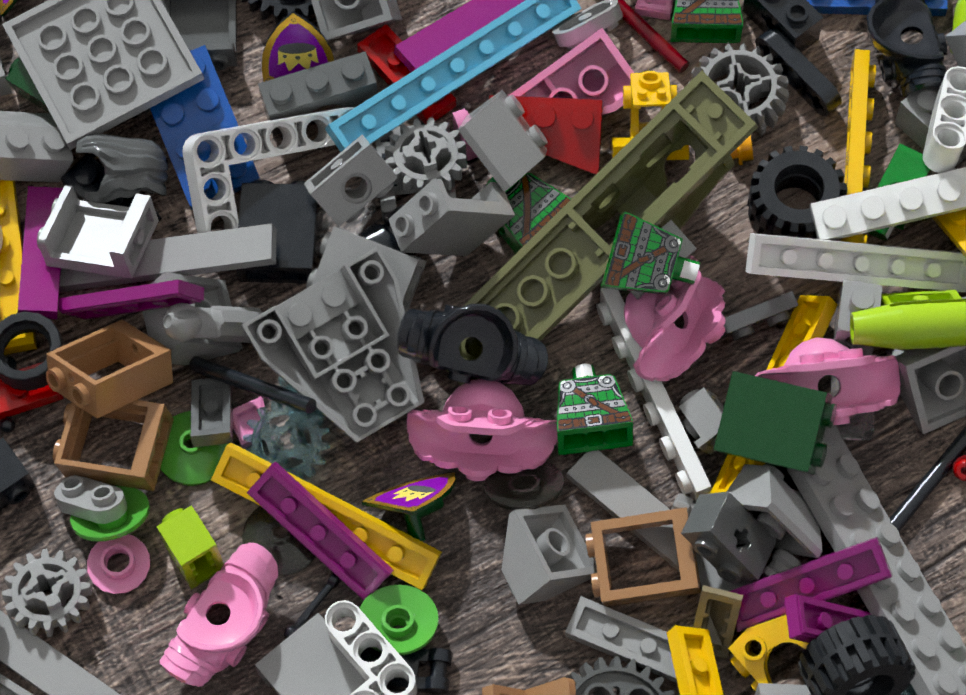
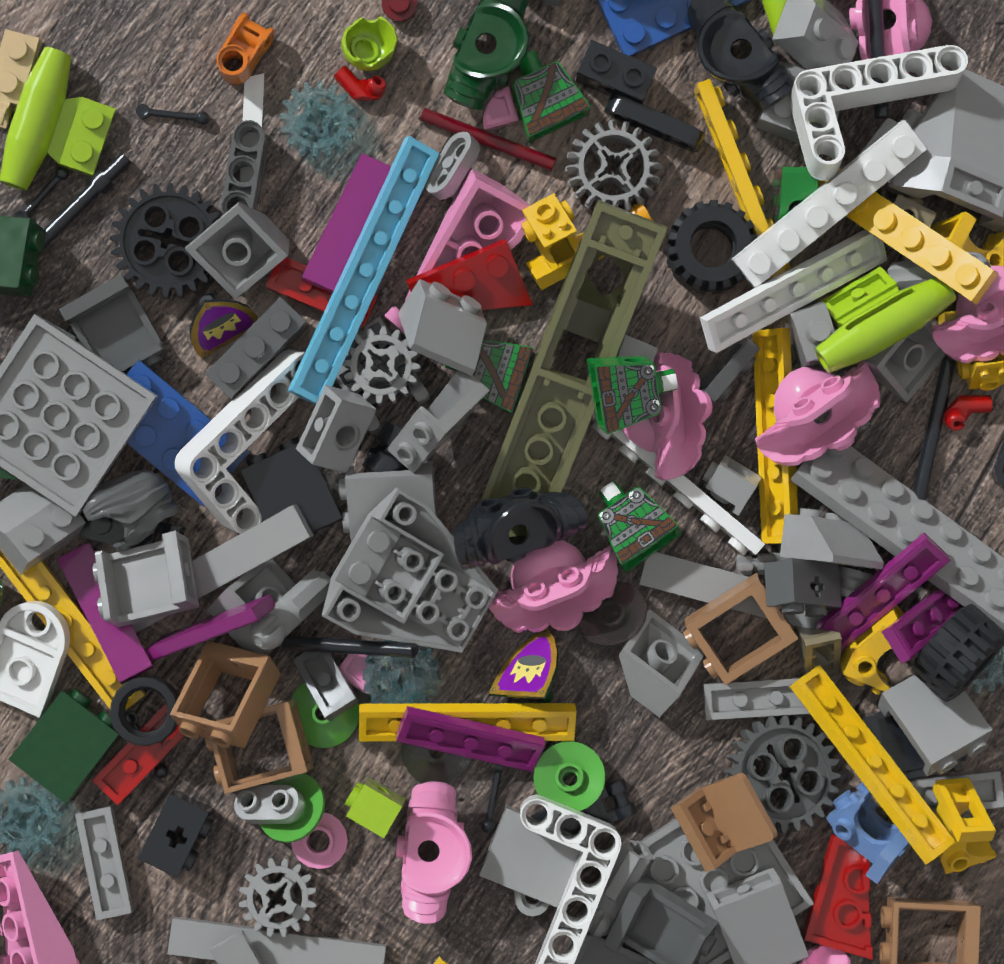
camera: 30 degrees left, 20 degrees up
(775, 423) = (799, 477): dark green brick -> none

